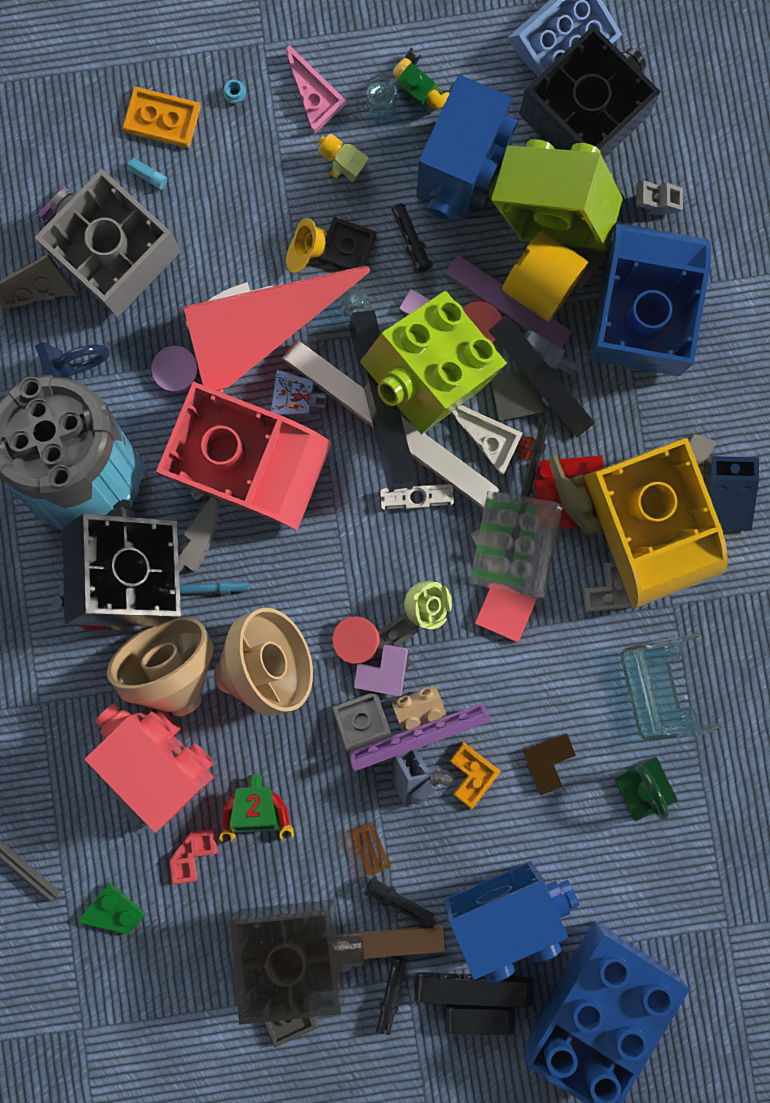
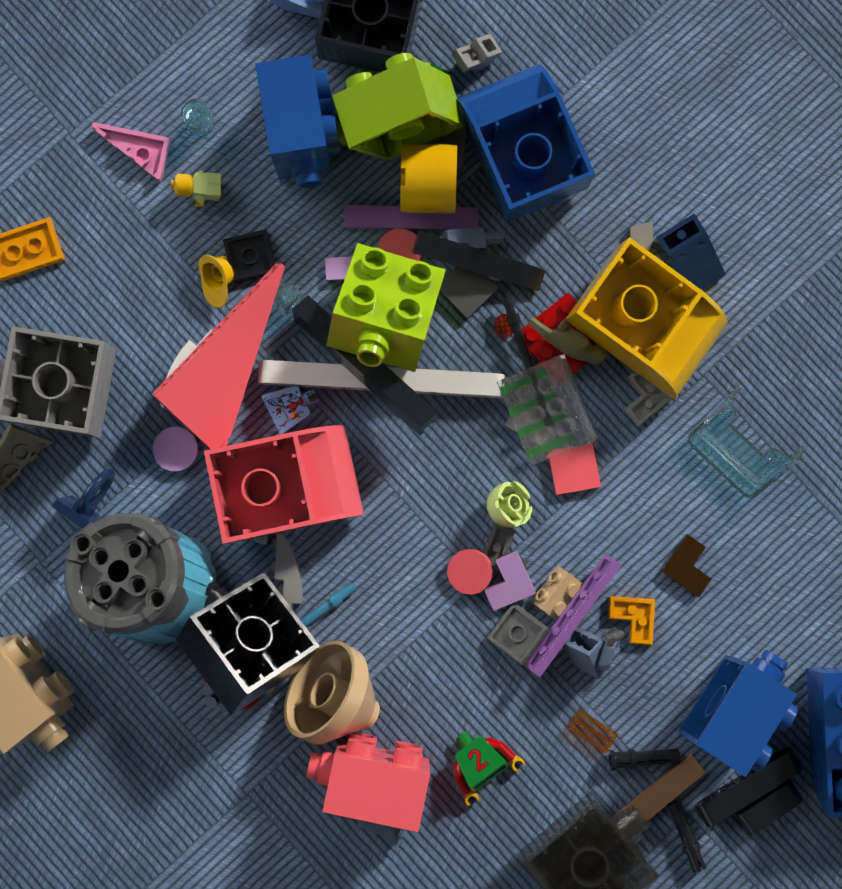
camera: 40 degrees left, 0 degrees up
(147, 173) = (44, 303): medium azure piece -> none
(183, 861) = (450, 823): coral tile -> none
(231, 86) = (67, 184): medium azure plate -> none
(266, 663) = (411, 639): tan cone -> none
(415, 247) = (306, 222): black pin -> none
(418, 84) = (223, 88): green torso -> none
(433, 494) = (453, 413): white piece -> none
(491, 436) = (469, 335): white wing -> none
(646, 790) = (779, 537): dark green tile -> none

